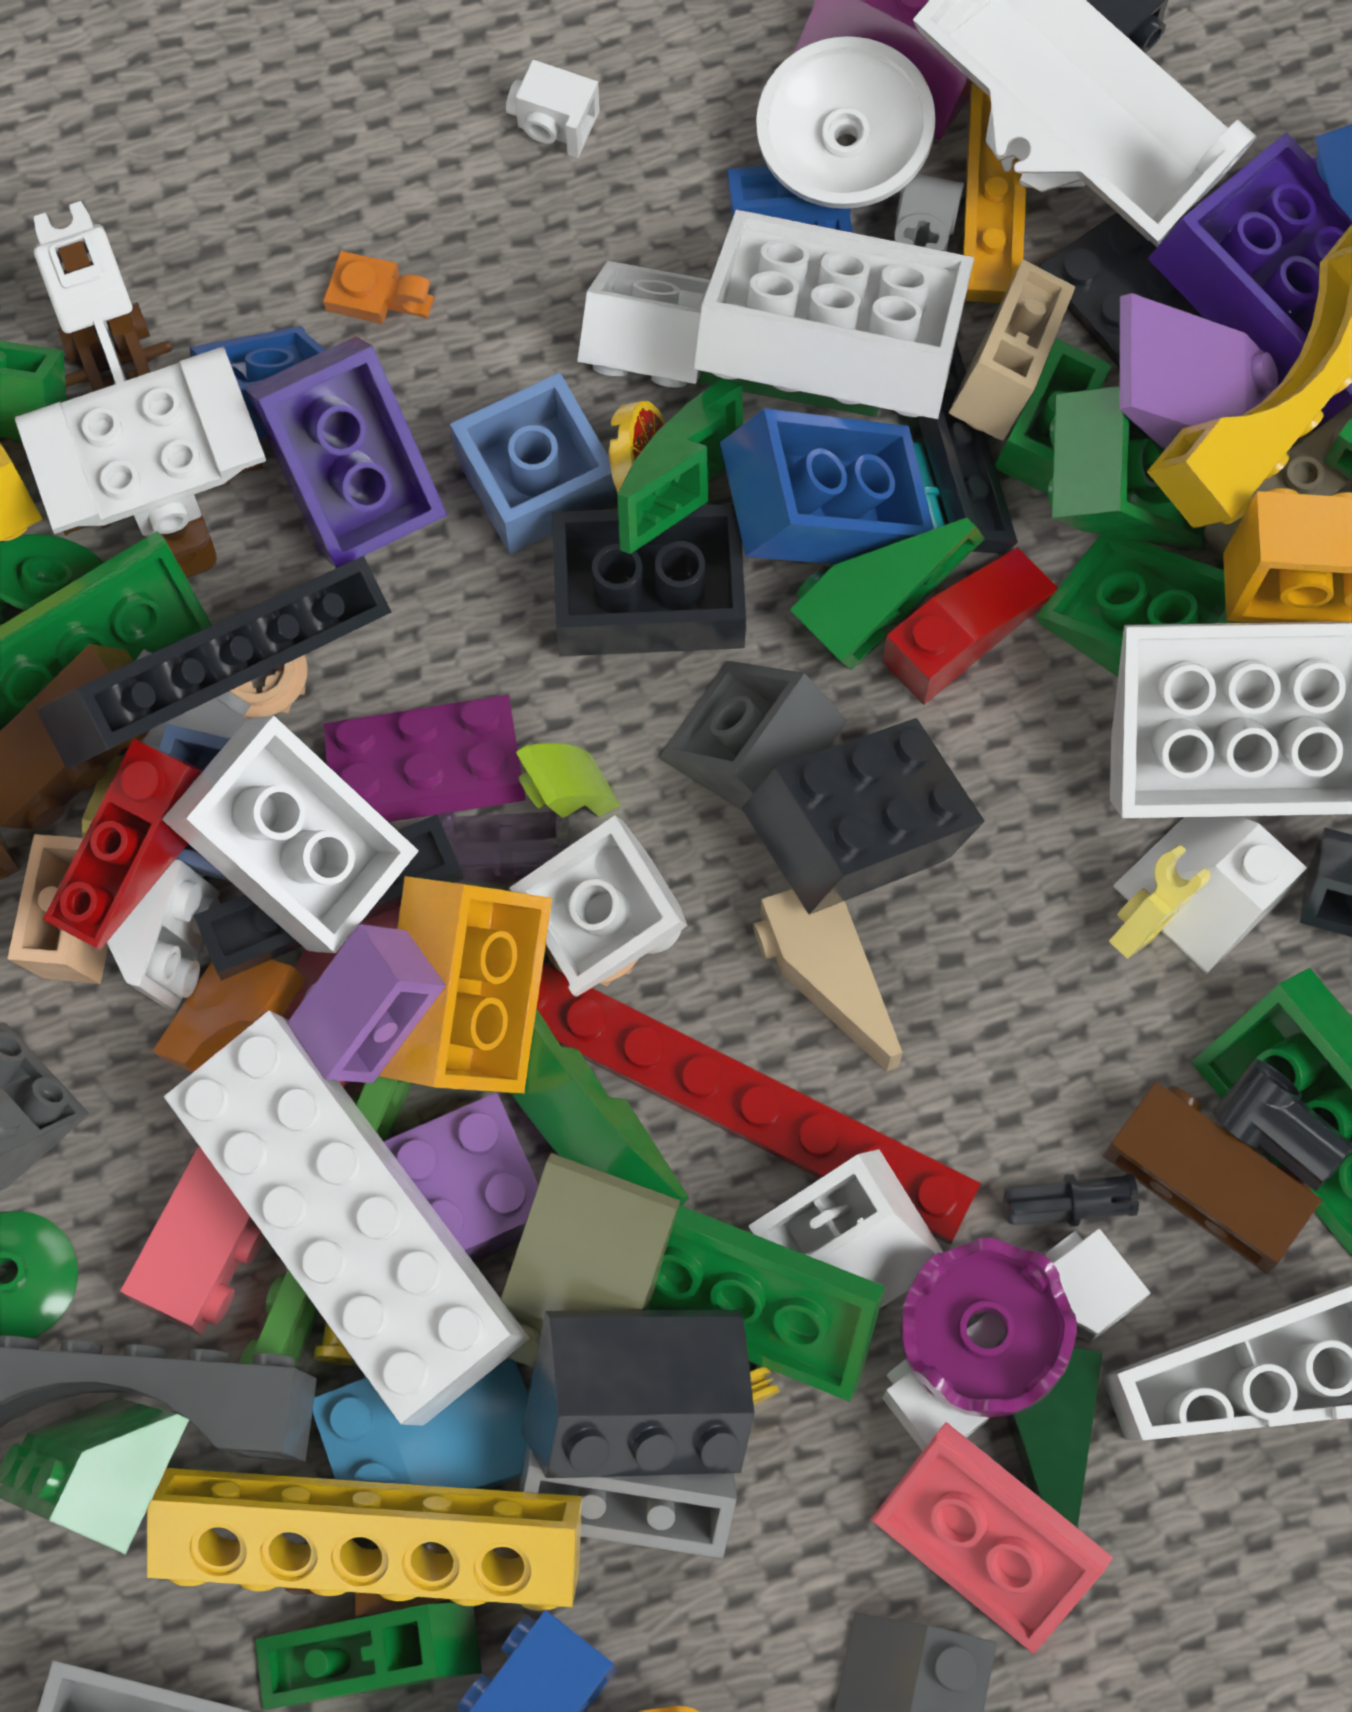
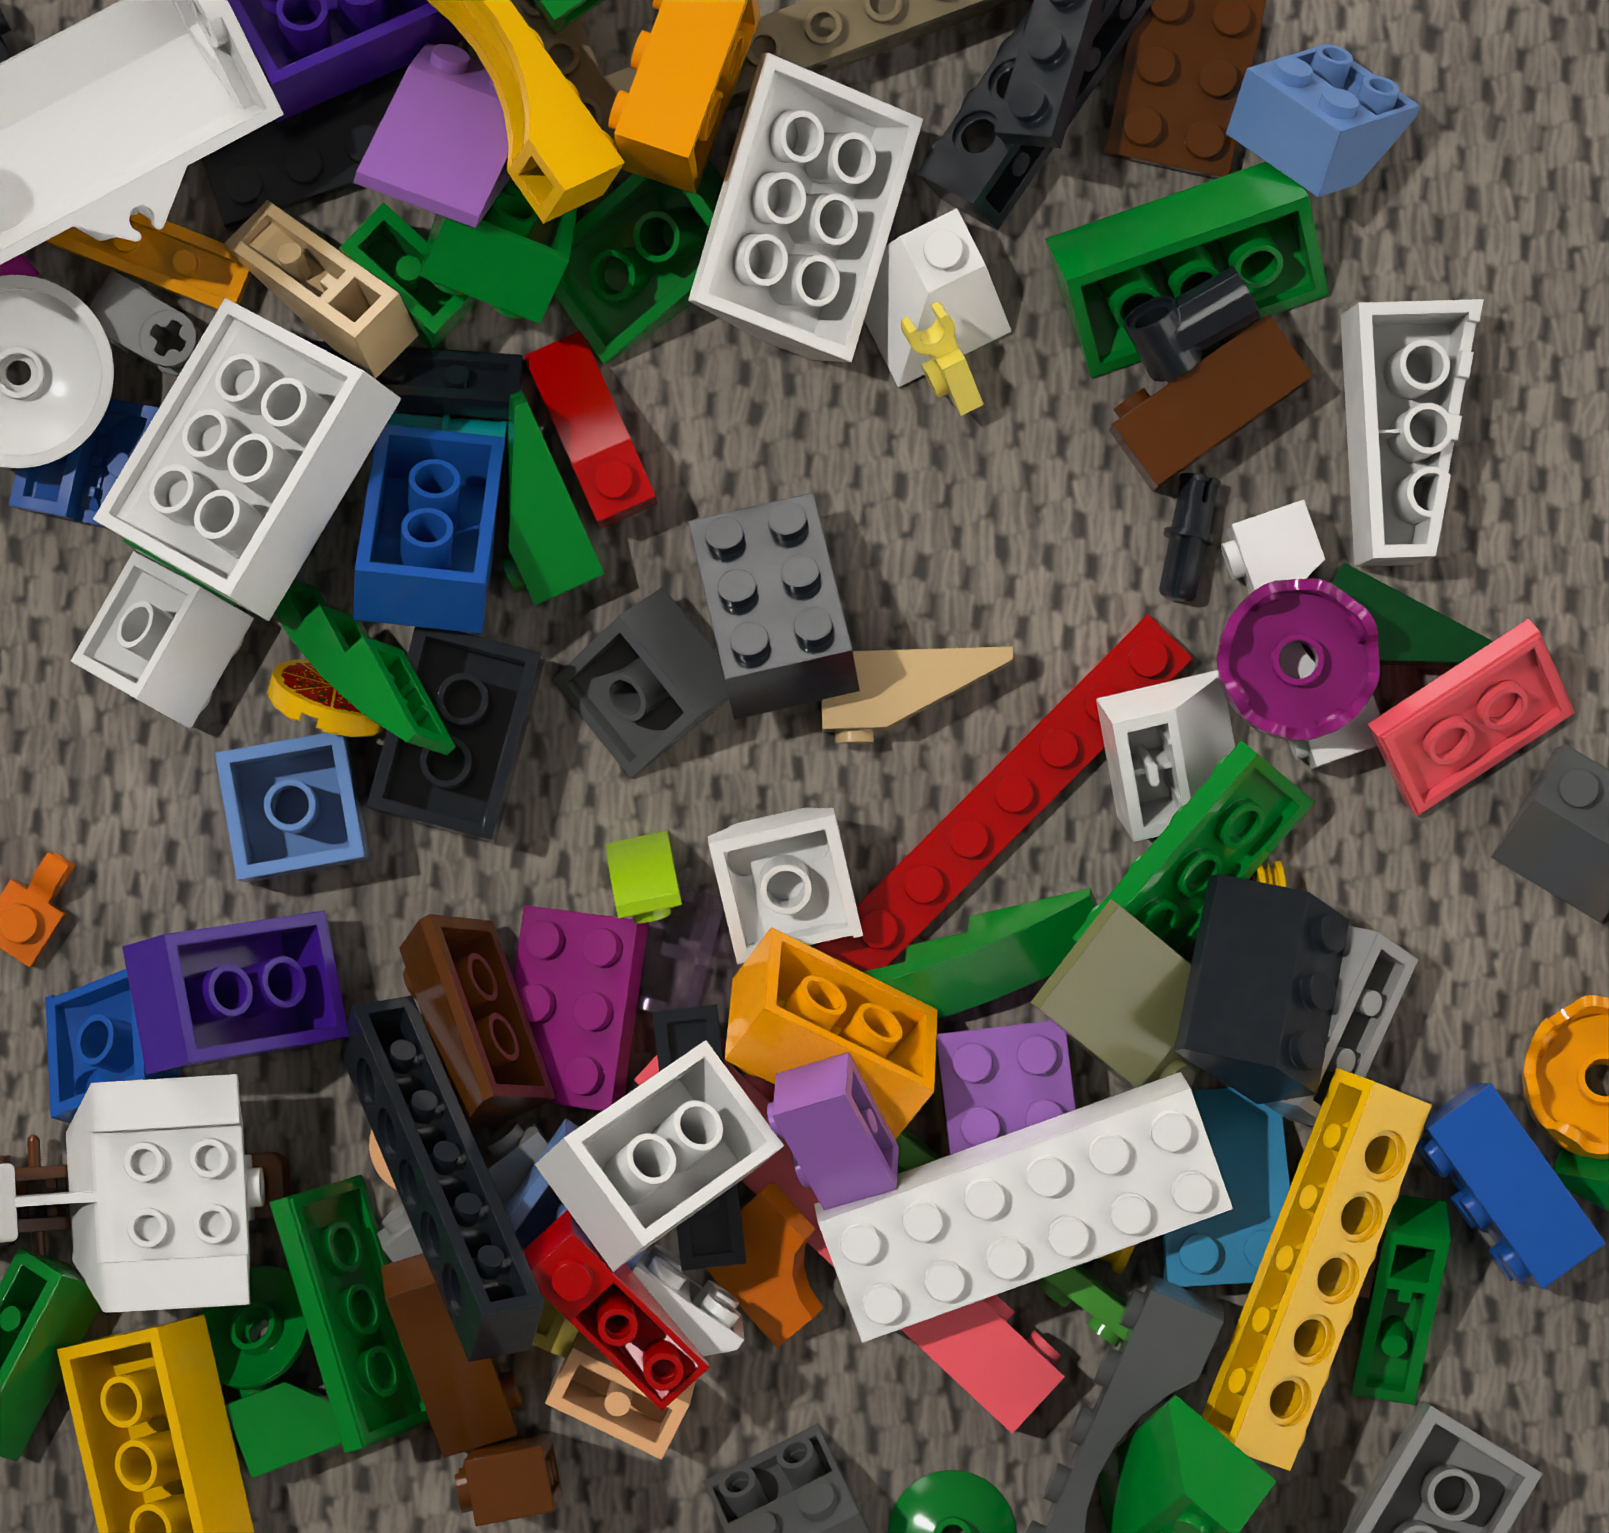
camera: 75 degrees left, 15 degrees up
(385, 670) = (475, 1018): none -> reddish brown slope

